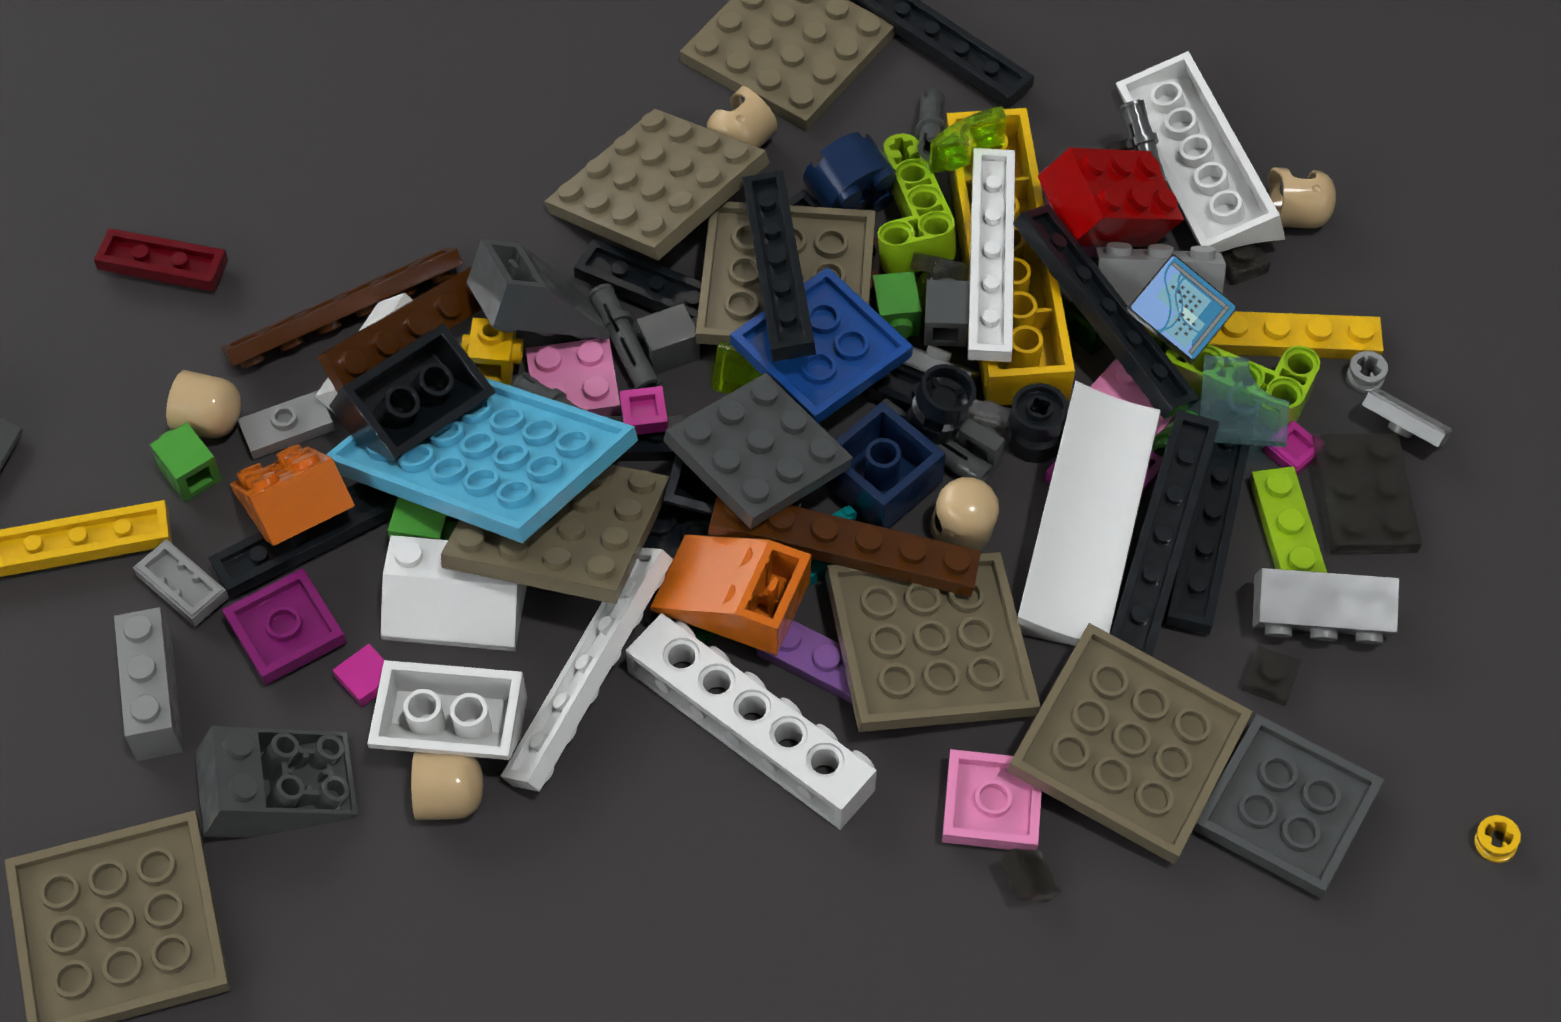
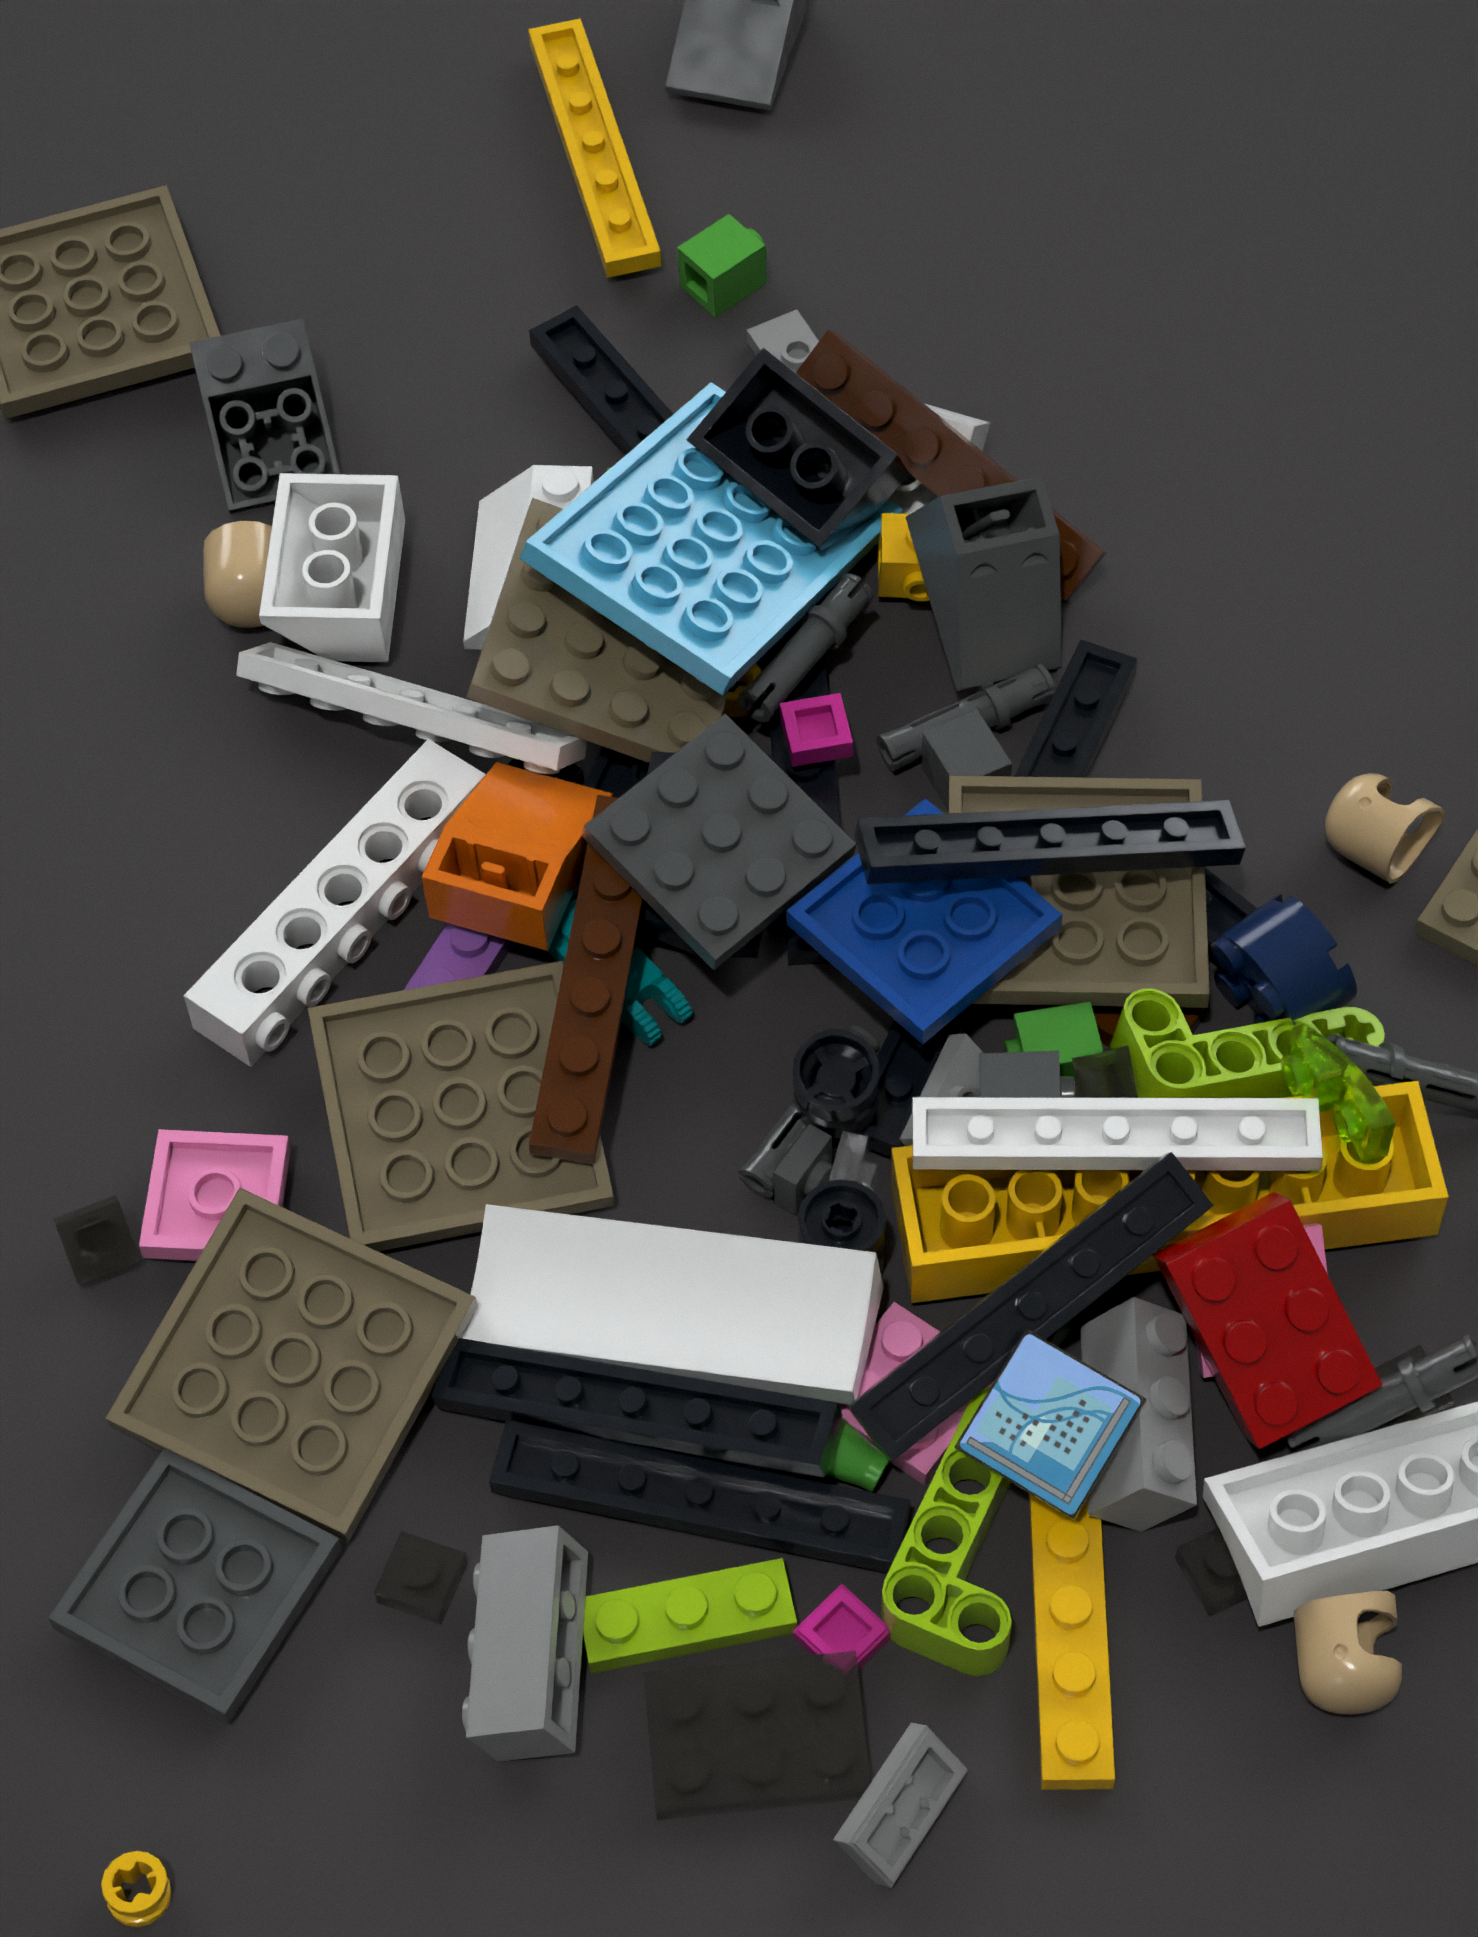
camera: 90 degrees right, 0 degrees up
(148, 684) = (395, 275): light grey brick -> none
(161, 259) = (1048, 196): dark red plate -> none
(180, 582) = (546, 288): light grey plate -> none
(205, 402) = (805, 262): tan helmet -> none
(284, 626) = (484, 398): magenta plate -> none
(292, 492) = (651, 355): orange slope -> none
(327, 314) = (978, 381): reddish brown plate -> none
(361, 674) = (426, 491): dark pink tile -> none
(581, 371) = (892, 669): bright pink plate -> none
(656, 183) = (1242, 720): dark tan plate -> none
(889, 467) = (739, 1032): dark blue brick -> none
(966, 513) = (674, 1148): tan helmet -> none
(1243, 408) = (876, 1512): clear light blue tile -> none
(1371, 361) = (995, 1735): light grey bush -> none

